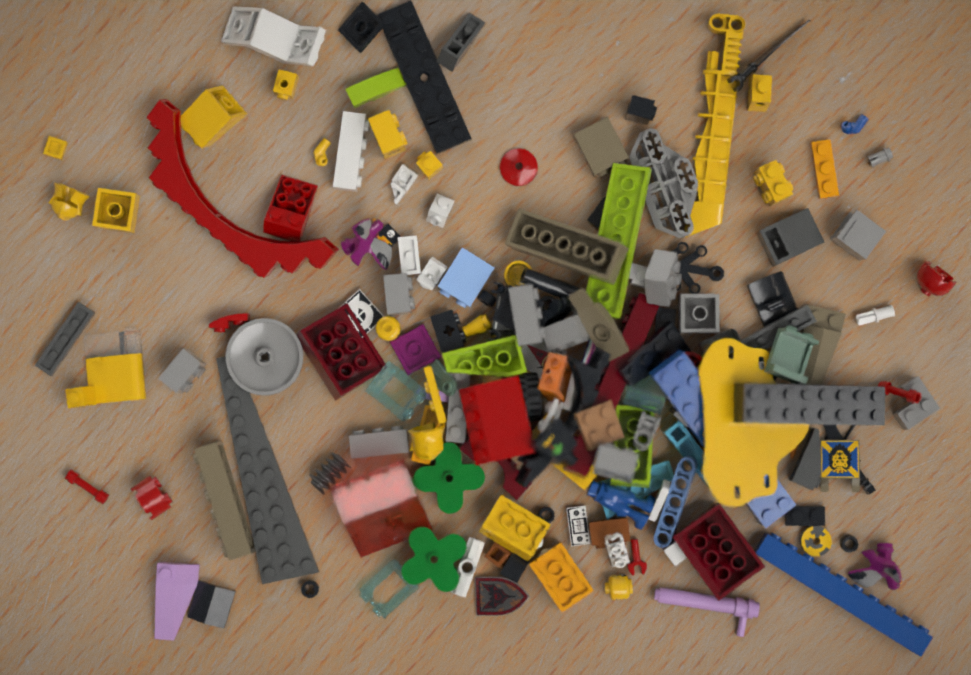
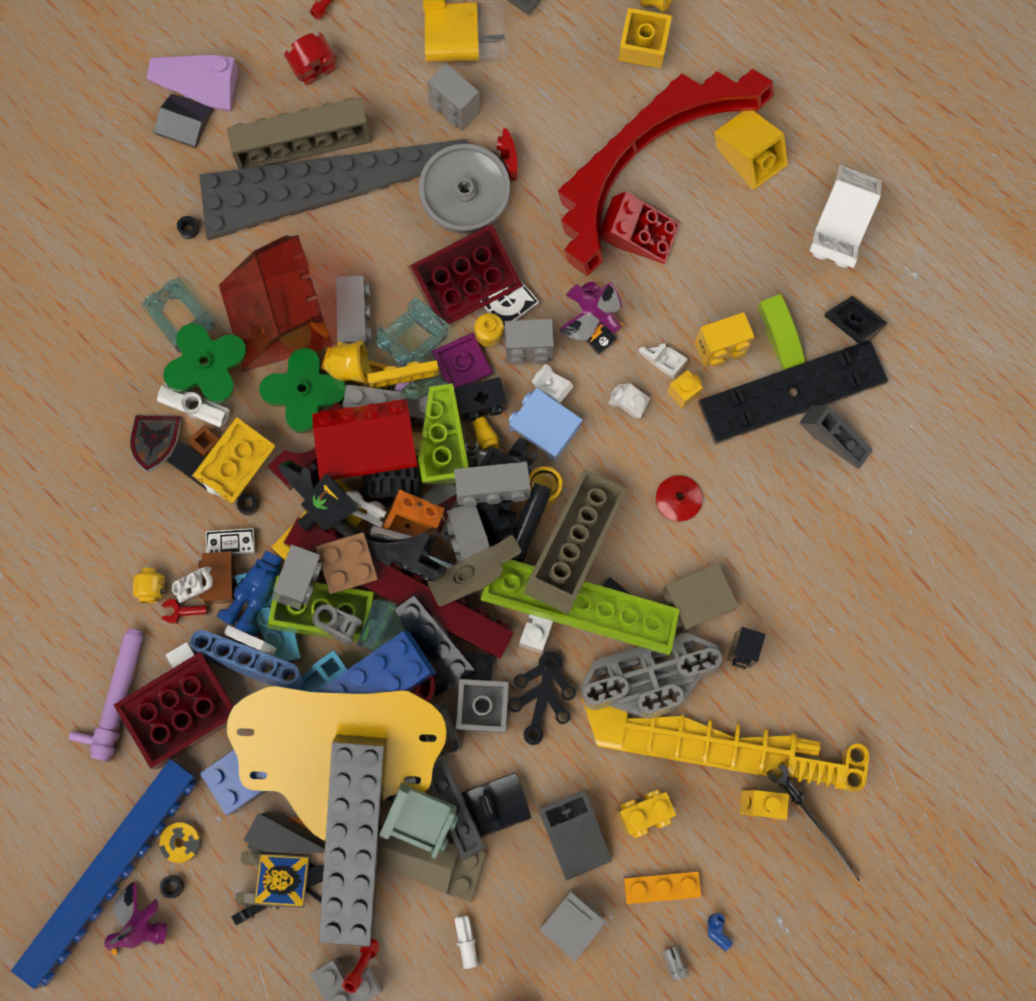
camera: 90 degrees right, 10 degrees down
(285, 85) = (787, 231): yellow brick -> none
(320, 154) = (704, 266): yellow arm -> none
(329, 472) = (322, 254): dark grey piece -> none
(350, 150) = (703, 298): white brick -> none
(409, 255) = (576, 360): white plate -> none
(560, 576) = (168, 514): light orange piece -> none
(662, 278) = (529, 658): light grey brick -> none
(805, 516) = (213, 831): black plate -> none

